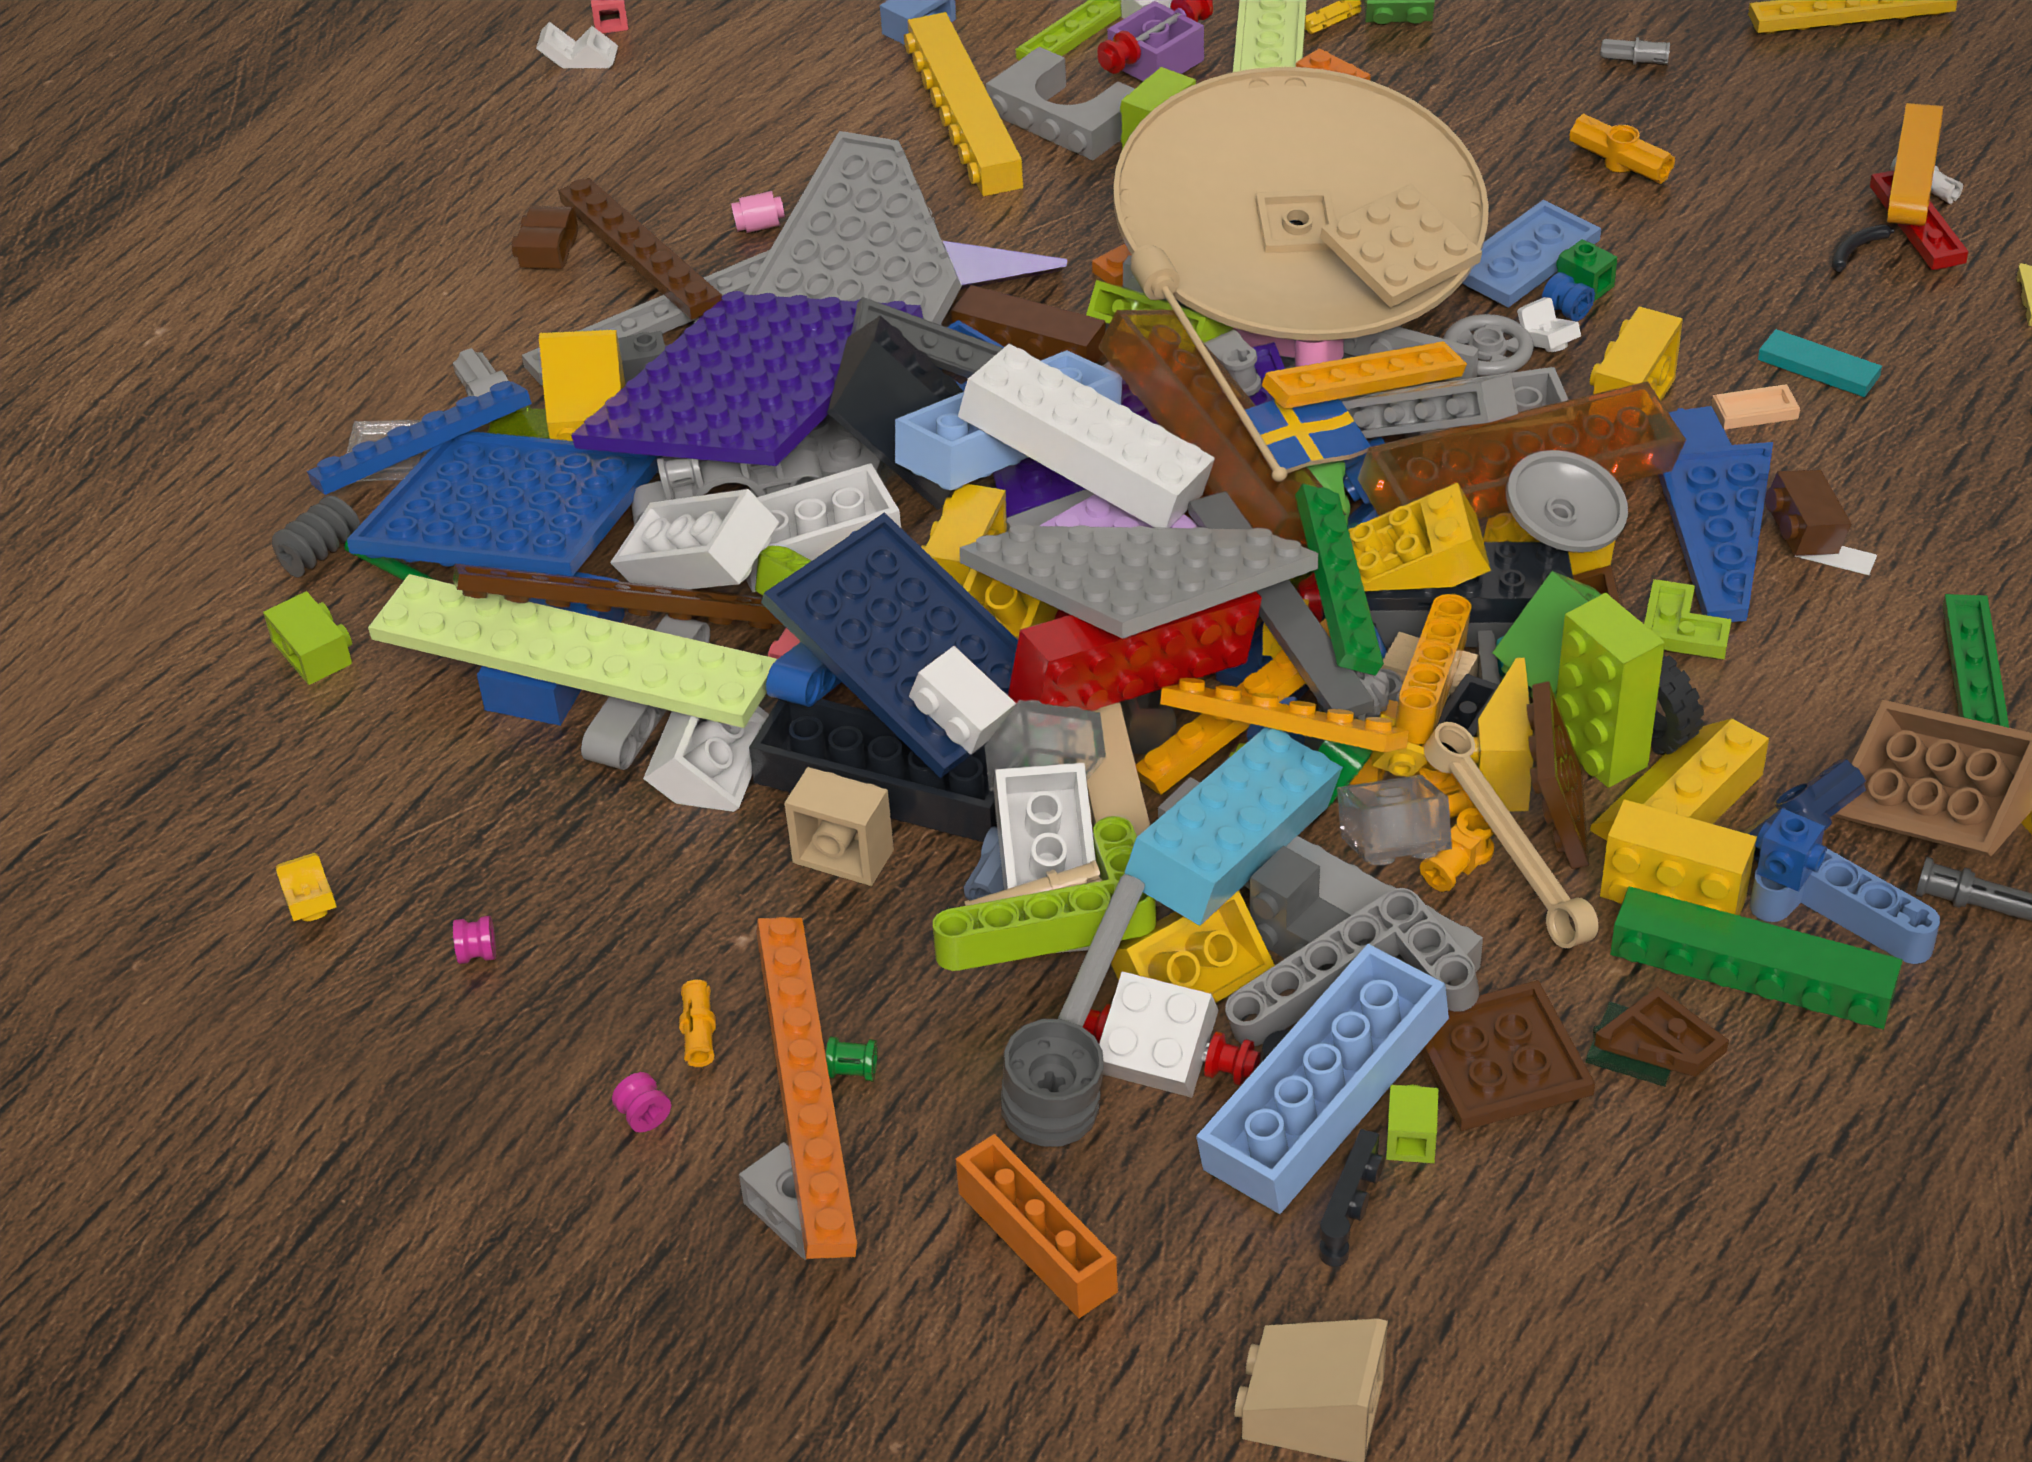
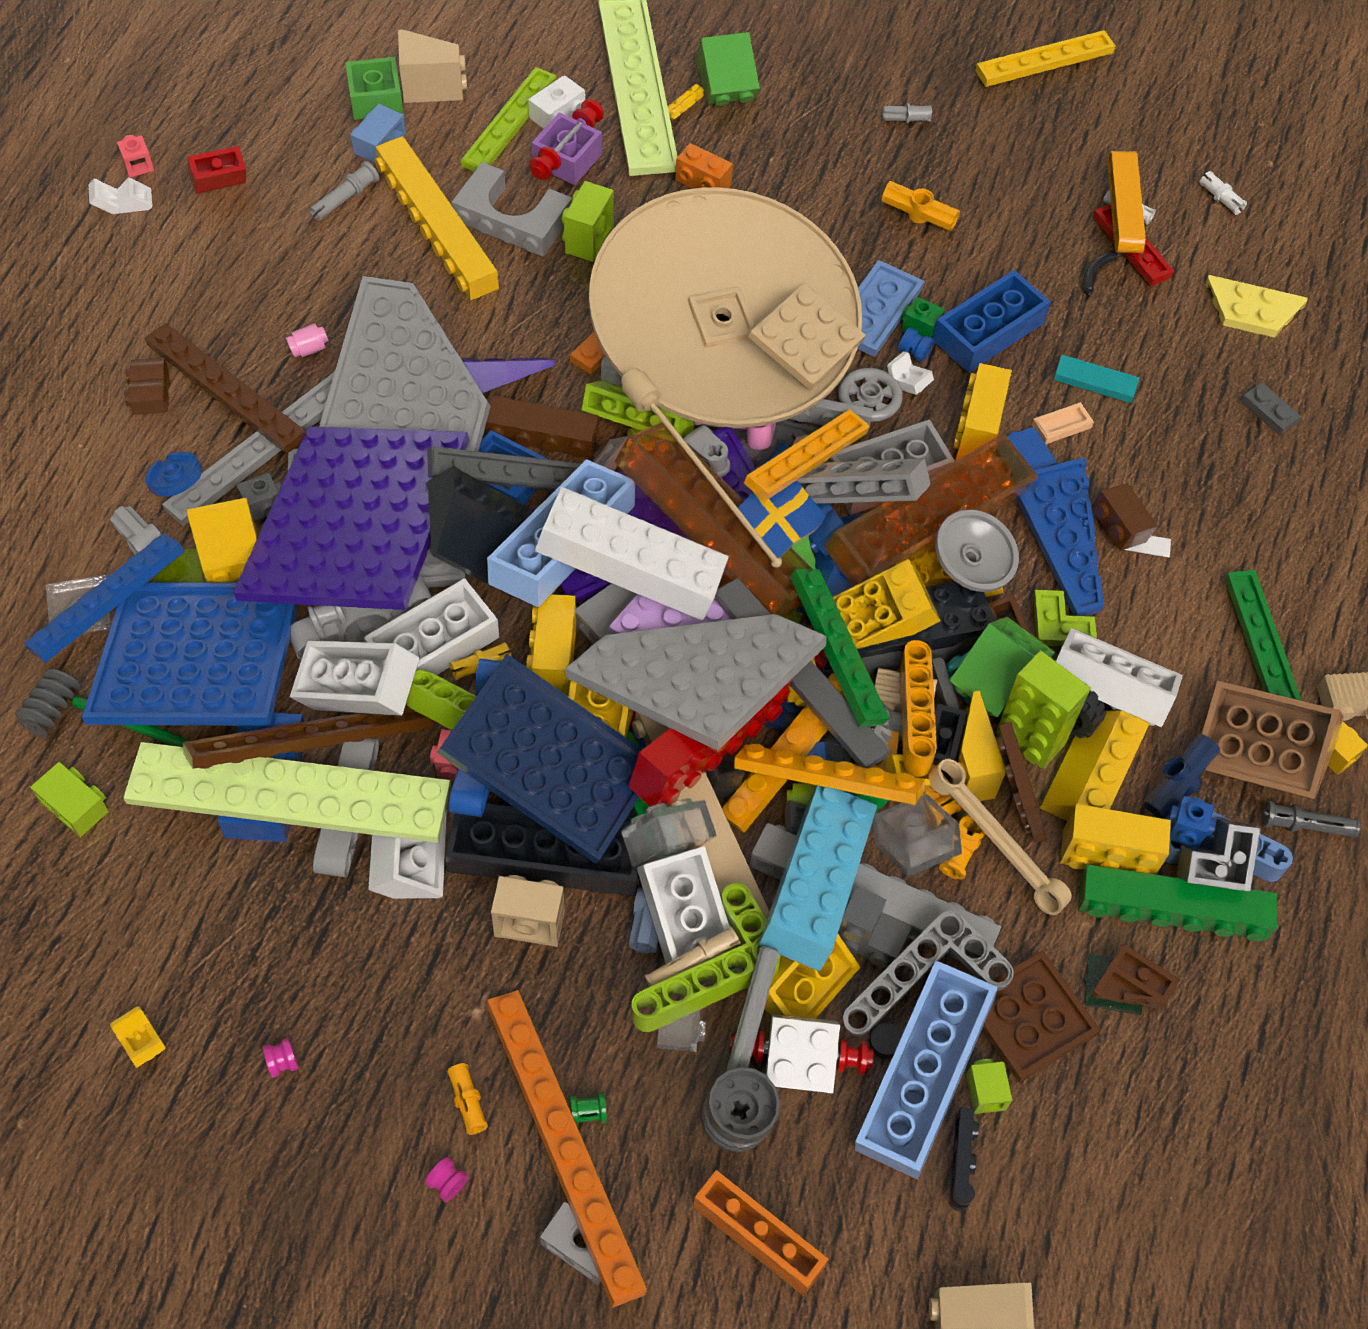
camera: 20 degrees left, 15 degrees up
(556, 319) = (174, 474): none -> blue tile
(702, 27) = (216, 169): none -> red brick
(868, 61) = (352, 185): none -> light grey pin
(961, 699) = (602, 805): white brick -> none
(1003, 992) = (682, 1033): none -> clear brick
(1684, 274) = (991, 321): none -> blue brick
(1747, 685) = (1121, 677): none -> white brick
(1830, 908) = (1227, 863): none -> dark grey brick

